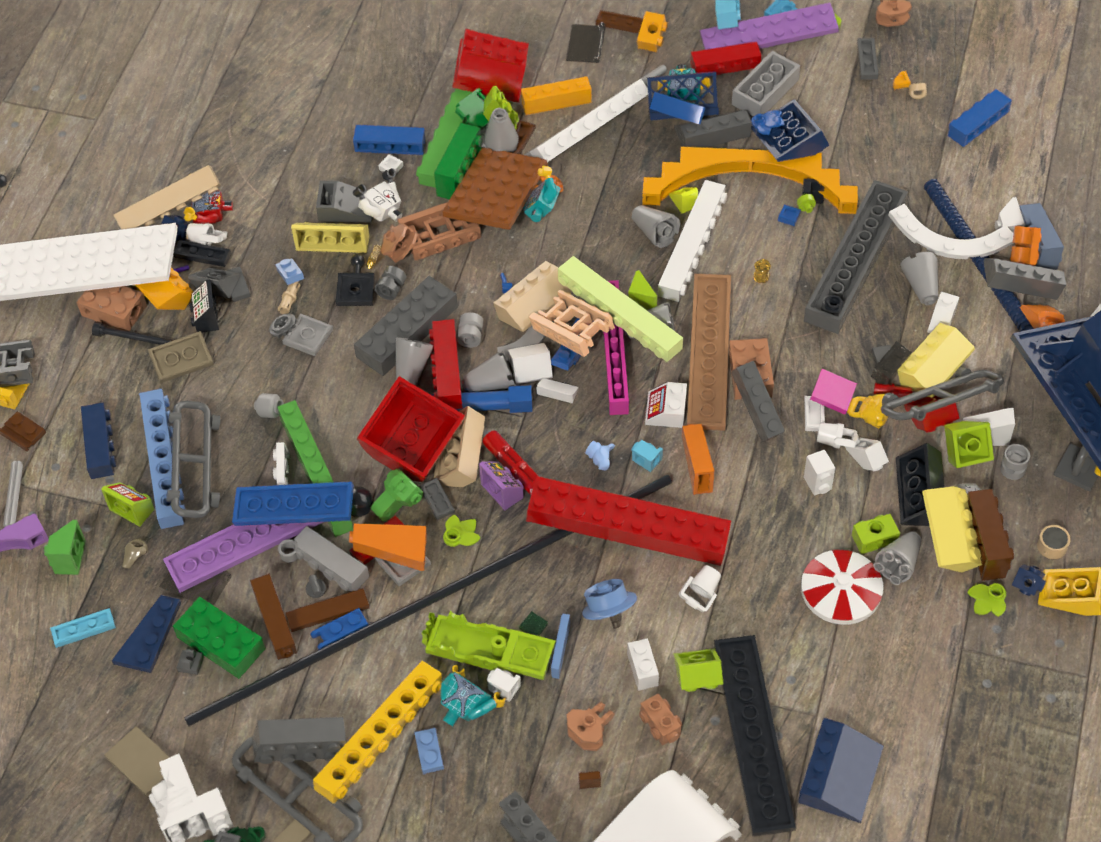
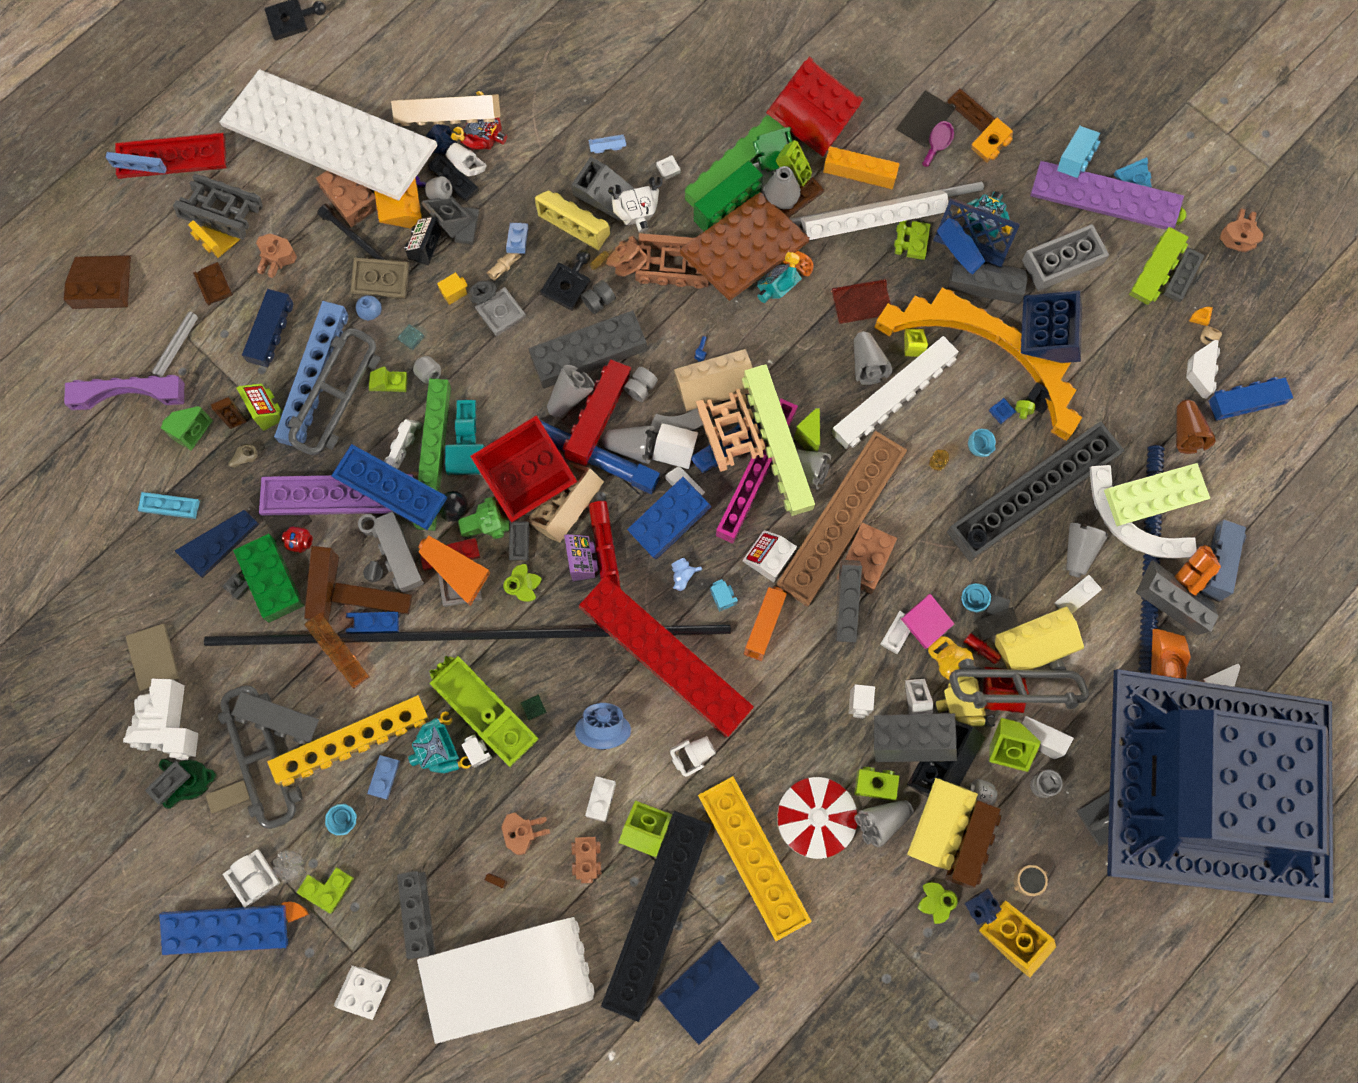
camera: 25 degrees right, 20 degrees up
(70, 379) = (274, 253): none -> nougat hinge
(104, 515) = (229, 413): none -> reddish brown tile
(182, 384) = (368, 307): none -> medium blue brick
(194, 263) = (438, 188): none -> light grey head
(227, 593) = (297, 539): none -> red head
(234, 433) = (388, 381): none -> lime slope
(236, 390) = (410, 337): none -> clear light blue tile
(253, 334) = (453, 288): none -> yellow brick
(321, 664) = (337, 650): none -> clear orange slope
(333, 167) = (601, 144): none -> light blue plate
(344, 456) = (458, 455): none -> teal plate
(389, 139) = (682, 138): blue brick -> none
(410, 802) = (340, 819): none -> medium azure hair
(560, 646) = (543, 741): medium blue tile -> none
(562, 414) = (669, 518): none -> blue brick
(608, 50) = (939, 139): none -> magenta piece
(618, 190) = (860, 301): none -> clear red piece
(637, 128) = (918, 239): none -> lime plate
(726, 59) = (1045, 207): red brick -> none
(766, 121) = (1040, 303): blue plate -> none
(788, 243) = (981, 442): none -> medium azure hair
(810, 644) = (754, 859): none -> yellow plate
(832, 434) = (898, 666): white piece -> none
(843, 58) = (1158, 266): none -> lime wedge
(862, 355) = (976, 597): none -> medium azure hair
(884, 476) = (915, 738): none -> dark grey brick
(906, 434) = (964, 711): none -> light yellow torso
(928, 114) = (1203, 369): none -> white slope
(950, 157) = (1192, 429): none -> dark orange cone
(954, 211) = (1156, 494): none -> yellowish green plate
(1010, 216) = (1207, 527): white slope -> none

